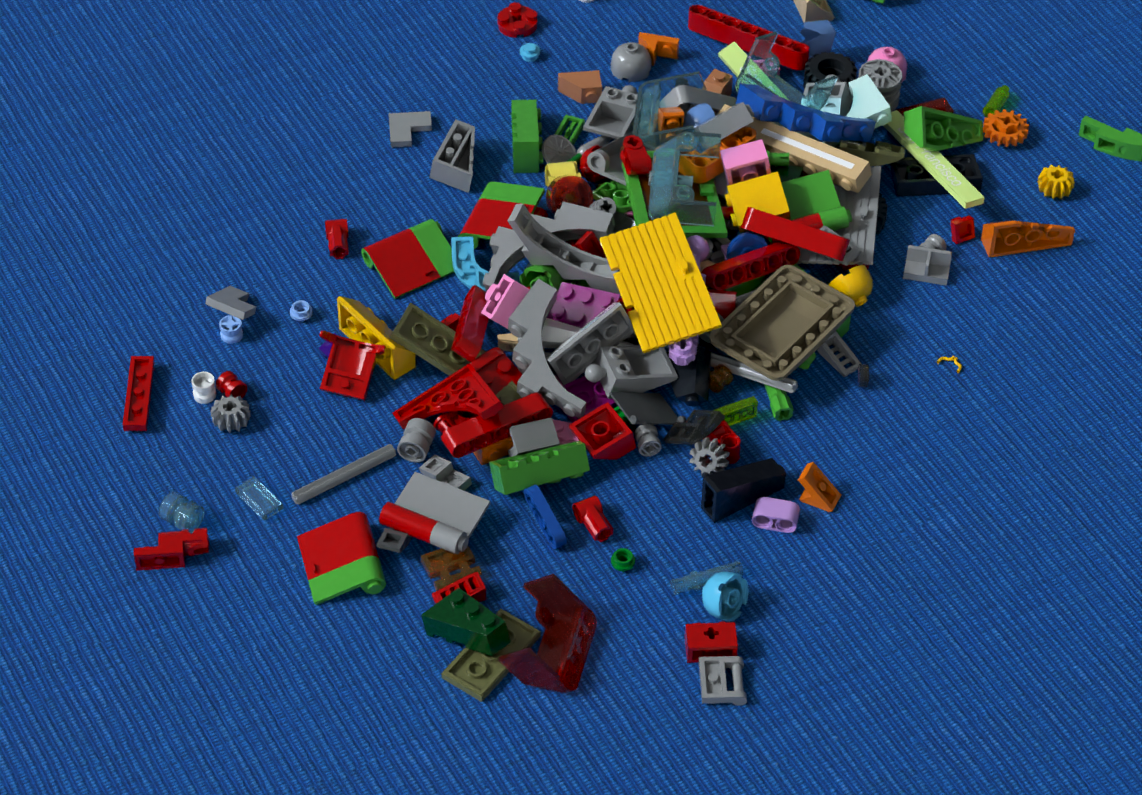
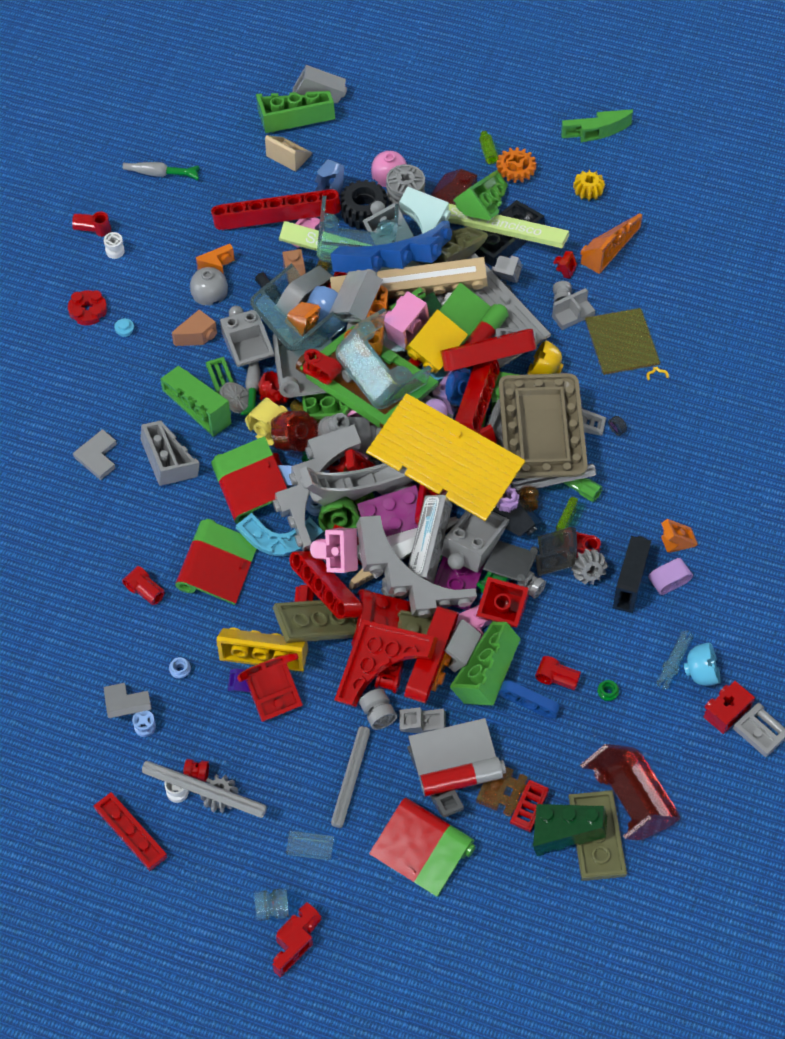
camera: 40 degrees left, 10 degrees up
(217, 396) = (204, 789): none -> light grey axle
(900, 198) = (508, 268): none -> light grey panel
(947, 319) = (622, 341): none -> clear yellow piece

